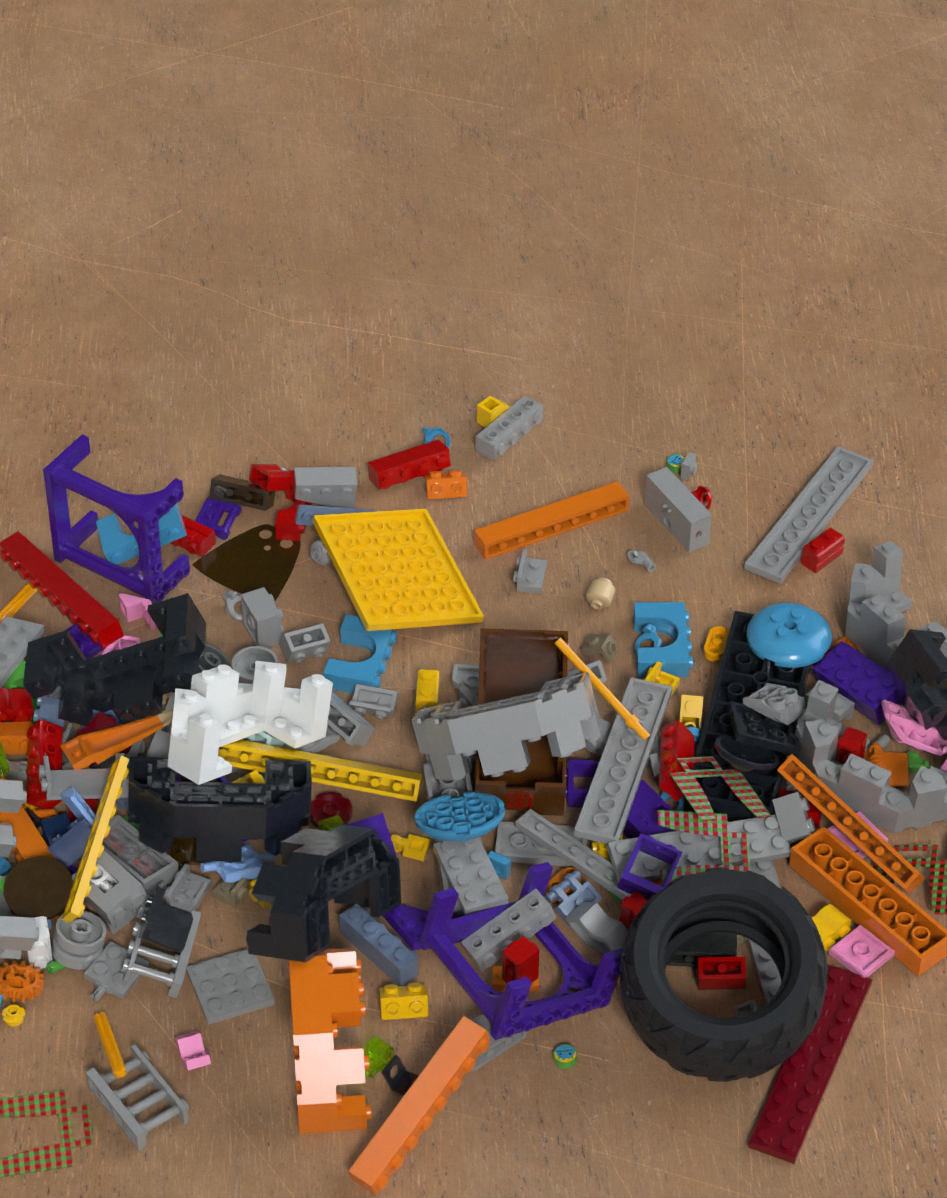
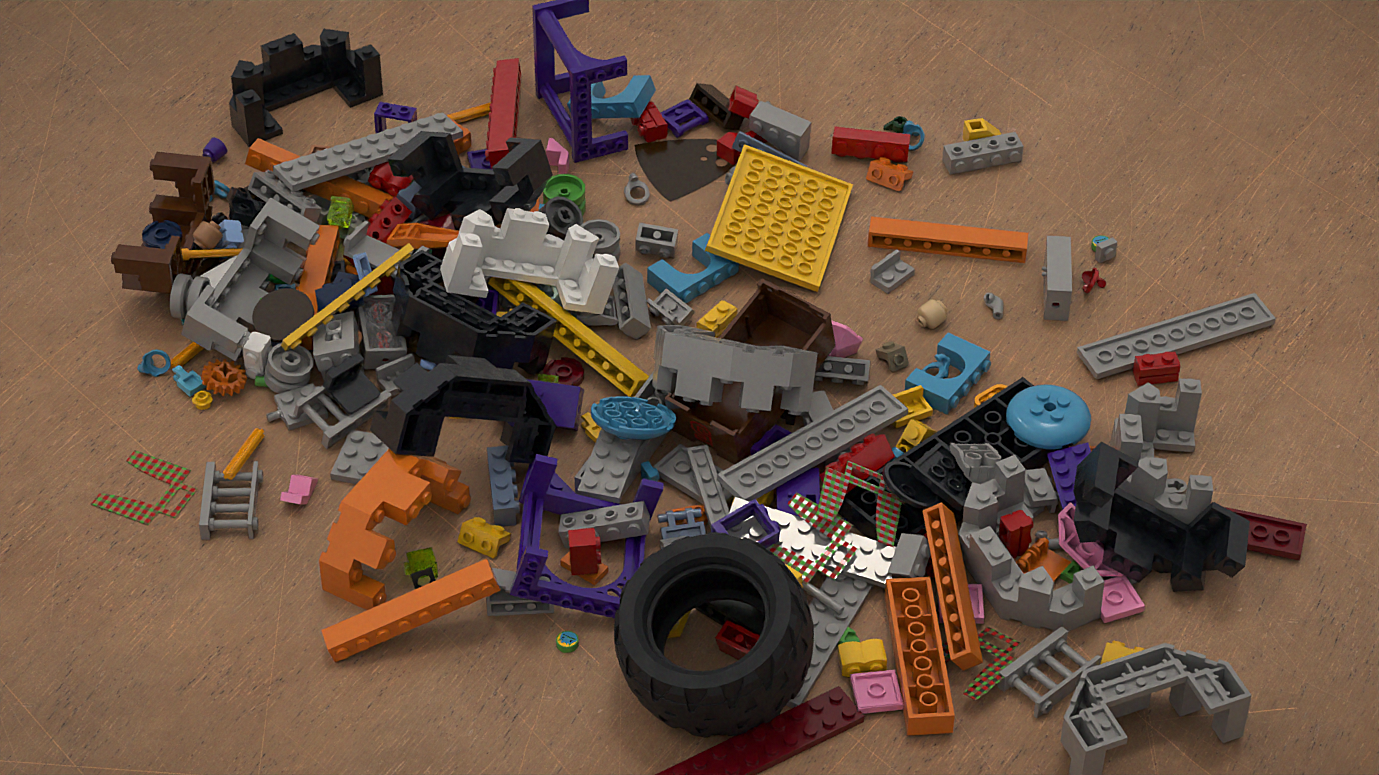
camera: 35 degrees right, 0 degrees up
(262, 618) = (639, 204): light grey brick -> none
(412, 435) = (896, 124): none -> dark green piece
(630, 720) = (839, 413): light orange bar -> none

